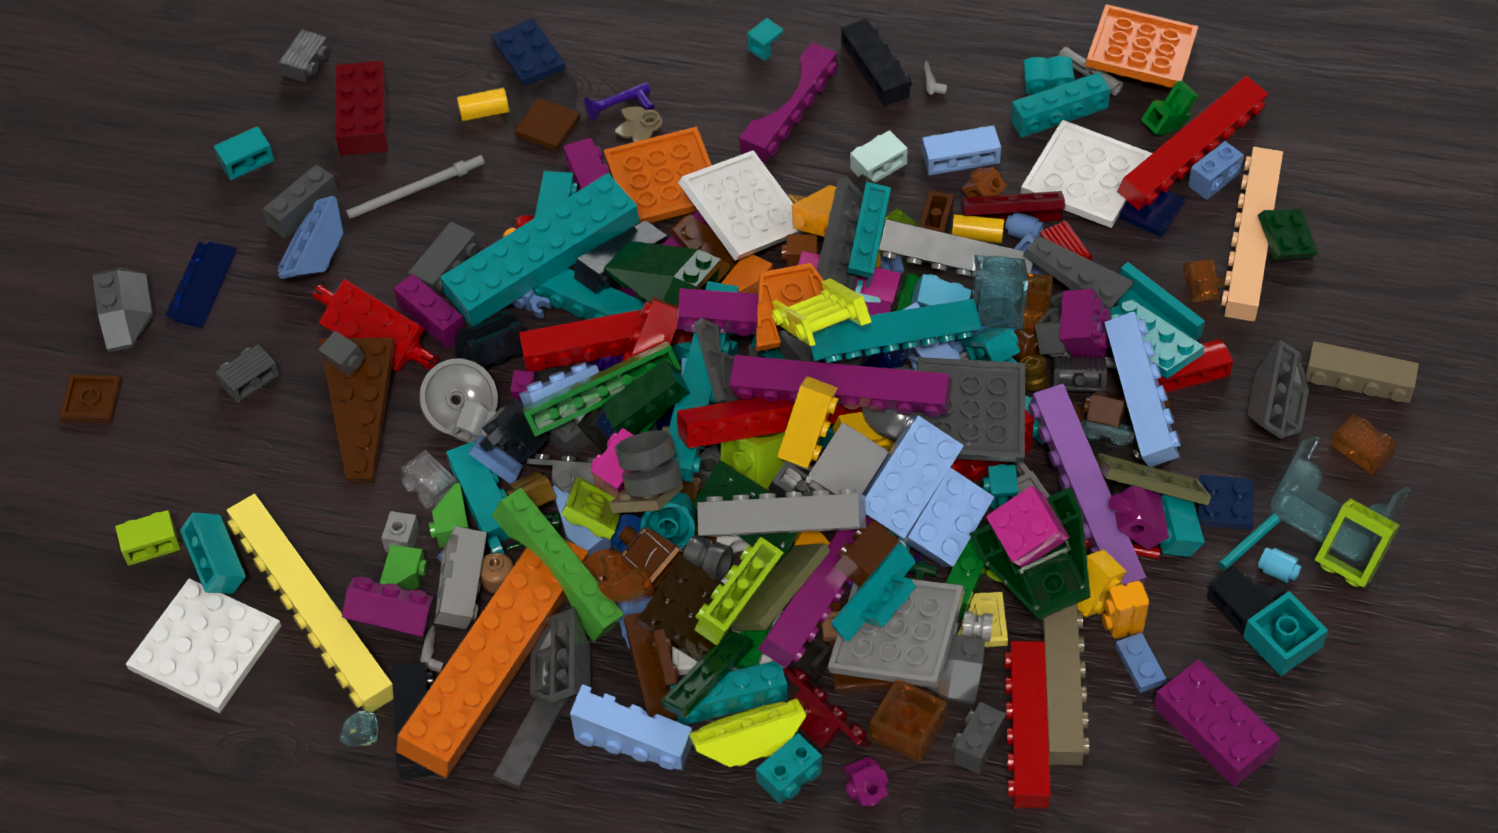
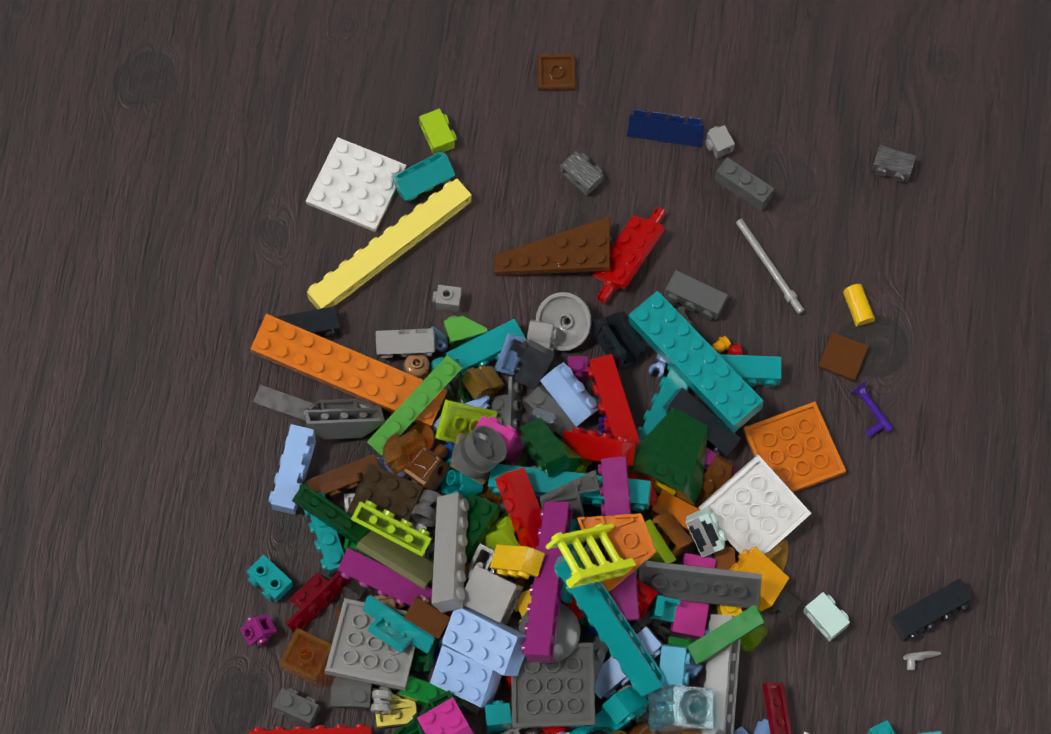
camera: 80 degrees right, 15 degrees up
(122, 306) = (640, 75): dark grey wedge -> none
(235, 223) = (719, 141): none -> light grey brick
(244, 153) = (790, 135): teal brick -> none
(313, 241) = (700, 198): medium blue wedge -> none
(342, 353) = (587, 233): dark grey brick -> none
(359, 729) = (293, 294): clear light blue piece -> none
(361, 108) = (842, 214): dark red brick -> none
(387, 606) = (381, 296): magenta brick -> none
(404, 567) = (415, 303): bright green slope -> none
(427, 479) = (494, 311): clear brick -> none
(428, 310) = (655, 280): magenta brick -> none
(428, 651) = (347, 330): light grey bar -> none
(528, 52) = (919, 333): dark blue plate -> none
(585, 162) = (790, 393): magenta brick -> none
(594, 390) = (557, 415): green brick -> none
(639, 123) = (848, 425): dark tan plate -> none
(749, 733) = (294, 546): neon yellow wedge -> none
(761, 37) = (948, 517): teal panel -> none
(767, 133) = (917, 560): magenta arch -> none
(768, 251) = (705, 531): none -> brick
(869, 231) = (720, 603): teal panel -> none
(910, 226) = (726, 634): none -> green tile
(937, 212) = (760, 662): reddish brown brick -> none
(961, 150) = (841, 682): light blue brick -> none
(978, 228) = (756, 698): yellow brick -> none
(984, 183) = (801, 701): dark orange brick -> none

